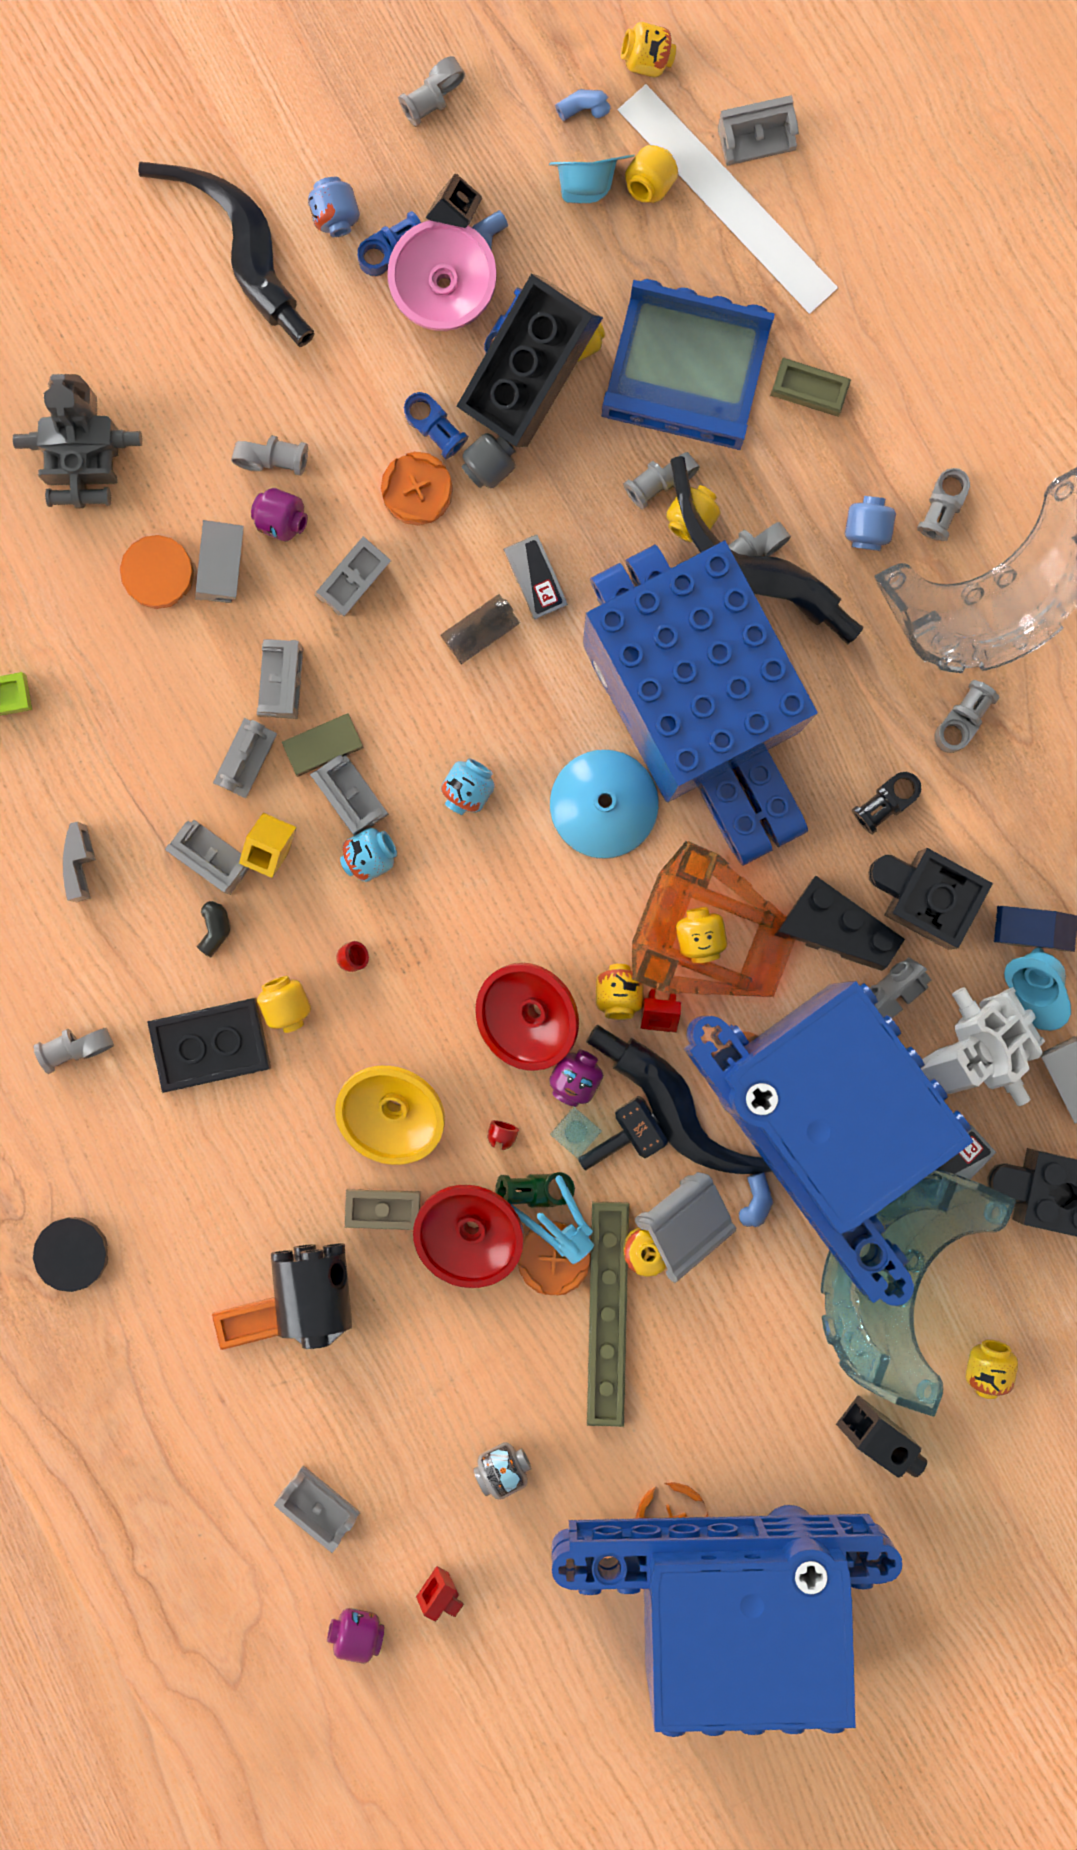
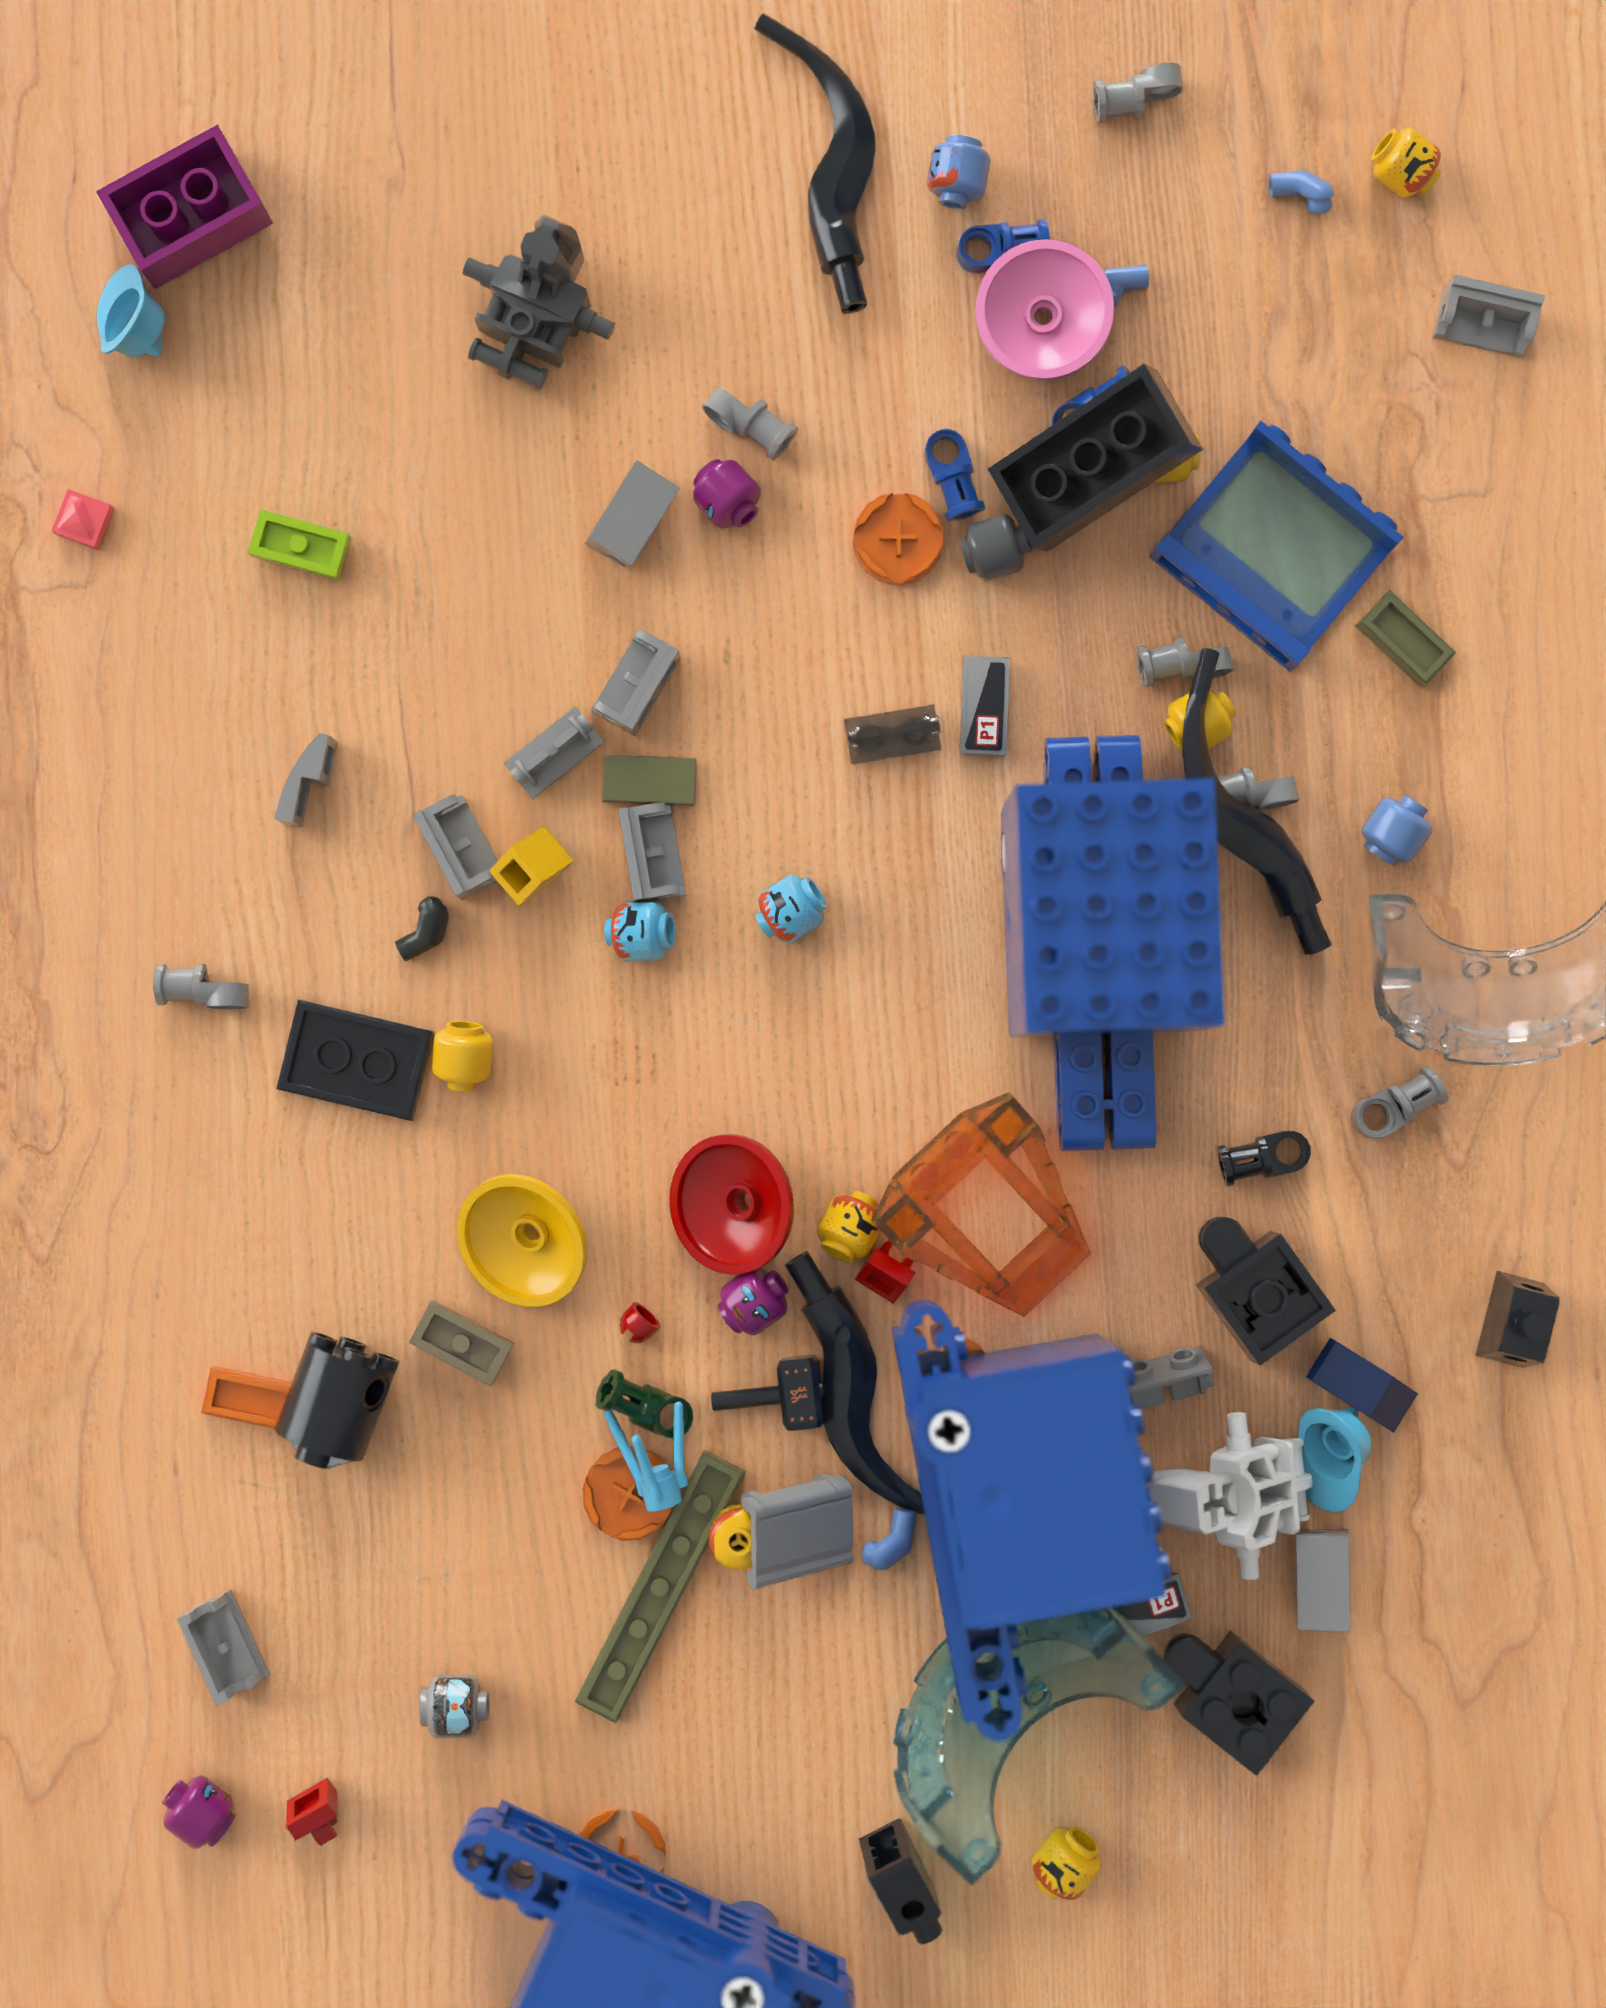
camera: 20 degrees right, 0 degrees up
(70, 1254) = (84, 1221): black tile -> none
(156, 571) = (556, 491): orange tile -> none
(352, 577) = (776, 606): light grey hinge -> none
(352, 957) = (566, 1039): red hinge -> none
(455, 203) = (1098, 235): black slope -> none
(464, 1253) = (529, 1437): red dish -> none
(575, 1132) = (723, 1362): clear light blue plate -> none
(586, 180) = (1263, 280): medium azure piece -> none
(596, 829) = (903, 1009): medium azure dish -> none
(651, 174) = (1340, 307): yellow head -> none
(701, 935) = (975, 1208): yellow head -> none
(729, 199) = (1415, 376): white sticker -> none
(837, 924) = (1136, 1269): black wing -> none
(944, 504) = (1495, 849): light grey connector -> none

